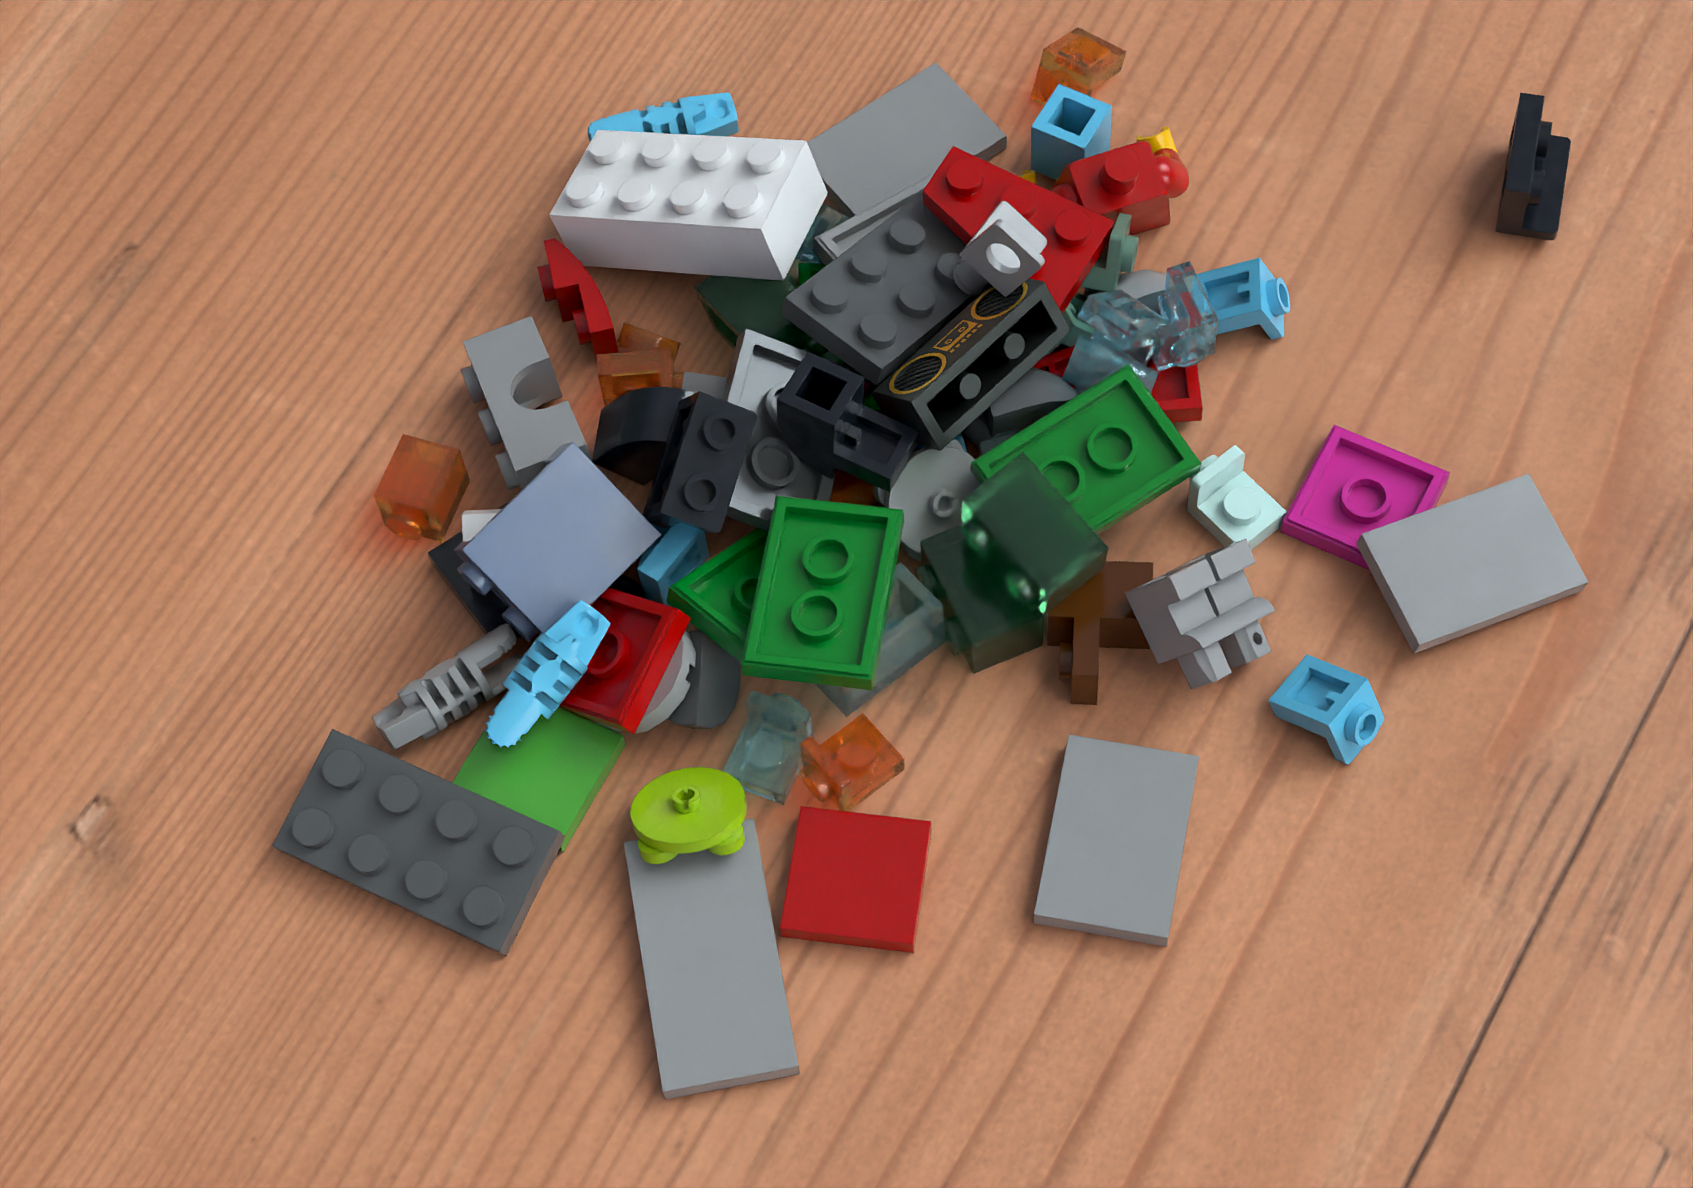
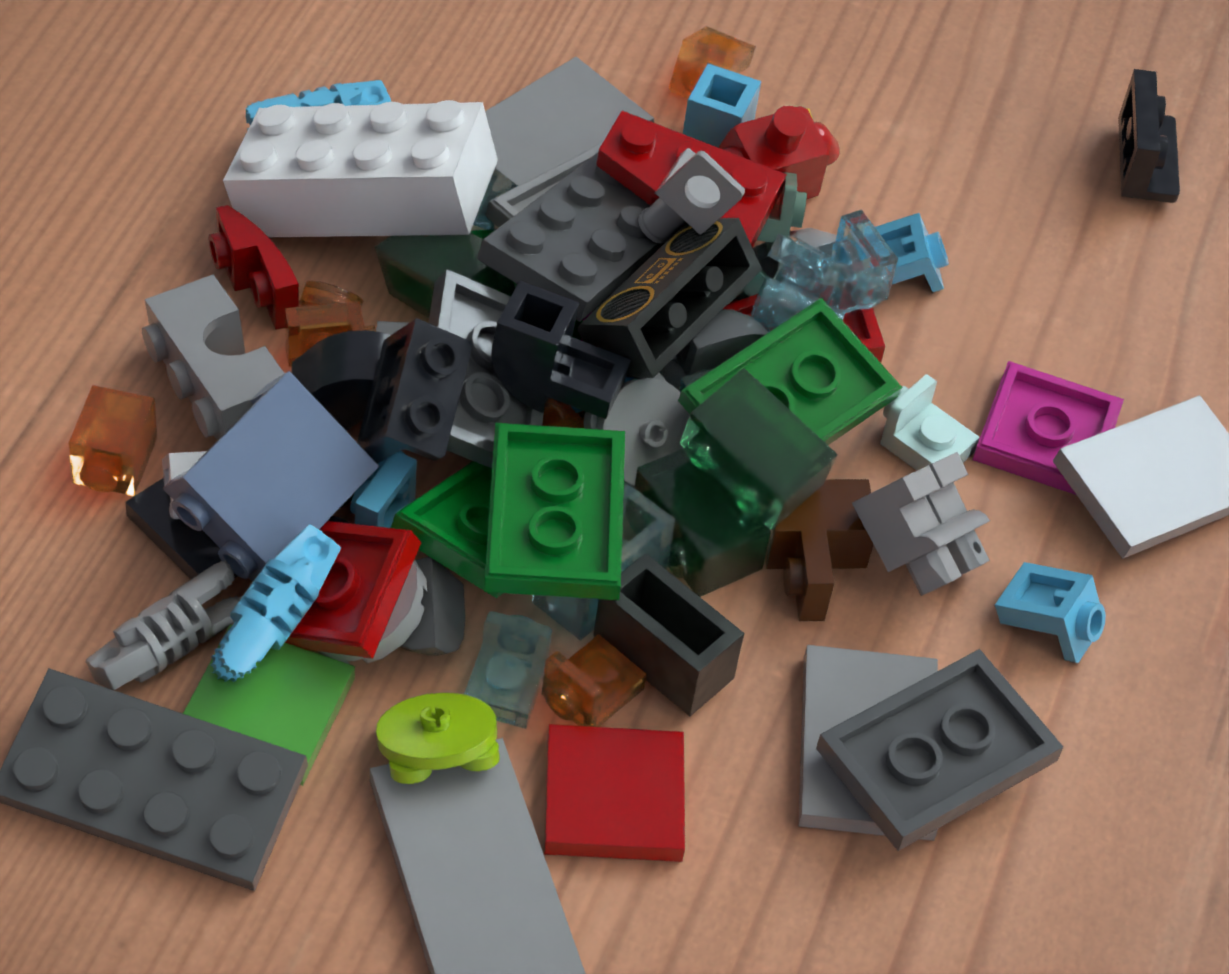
camera: 20 degrees left, 10 degrees down
(927, 722) = (670, 635): none -> pearl dark grey brick
(1177, 857) = (938, 749): none -> dark grey plate

